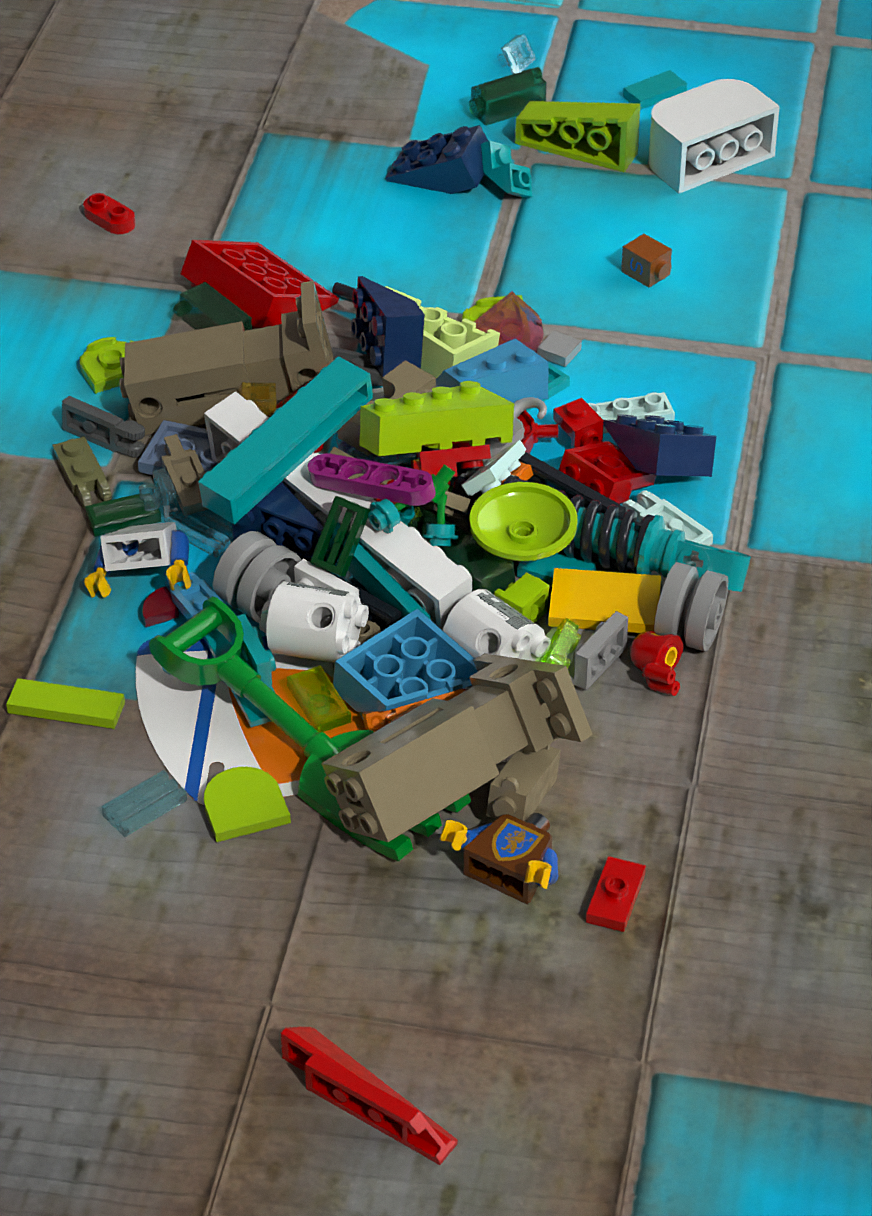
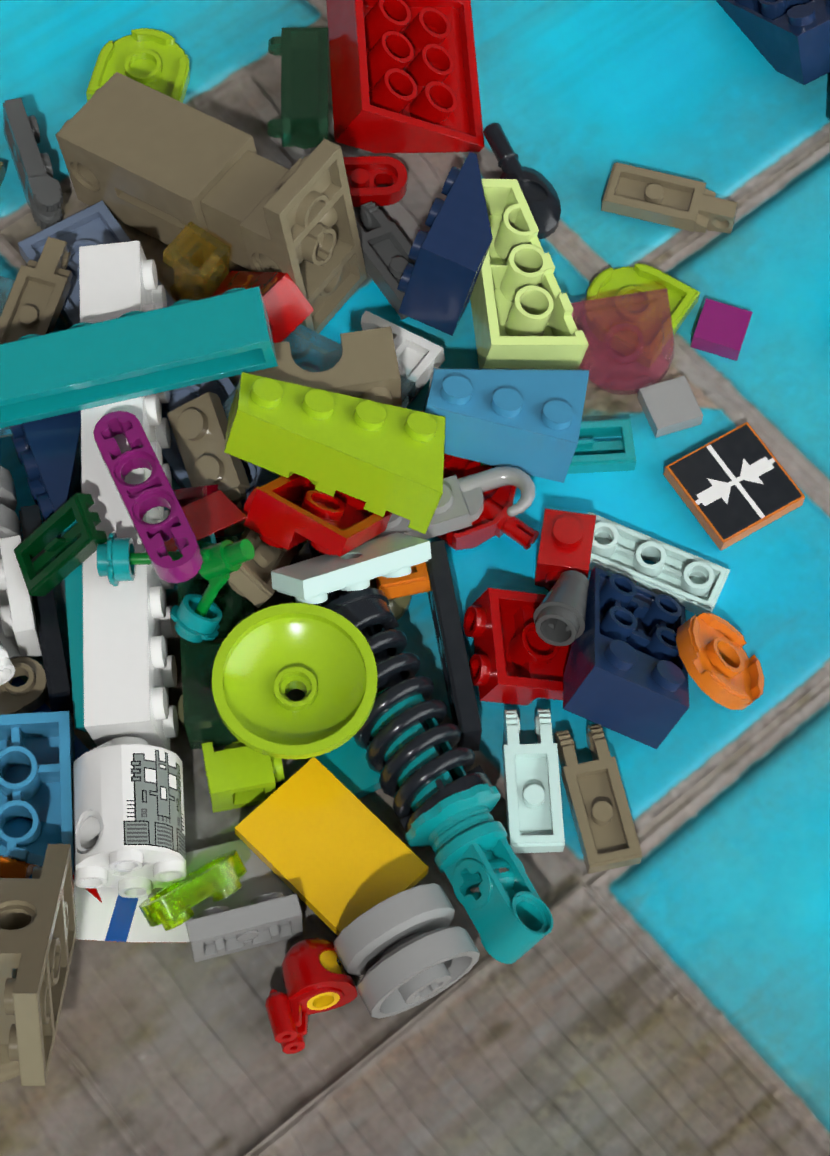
camera: 35 degrees right, 20 degrees up
(462, 267) = (667, 200): none -> dark tan hinge
(549, 305) = (721, 329): none -> magenta tile
(611, 439) = (563, 610): none -> dark grey cone
(627, 362) = (734, 486): none -> black tile
(705, 420) = (717, 661): none -> orange tile
(709, 511) = (598, 803): none -> dark tan hinge

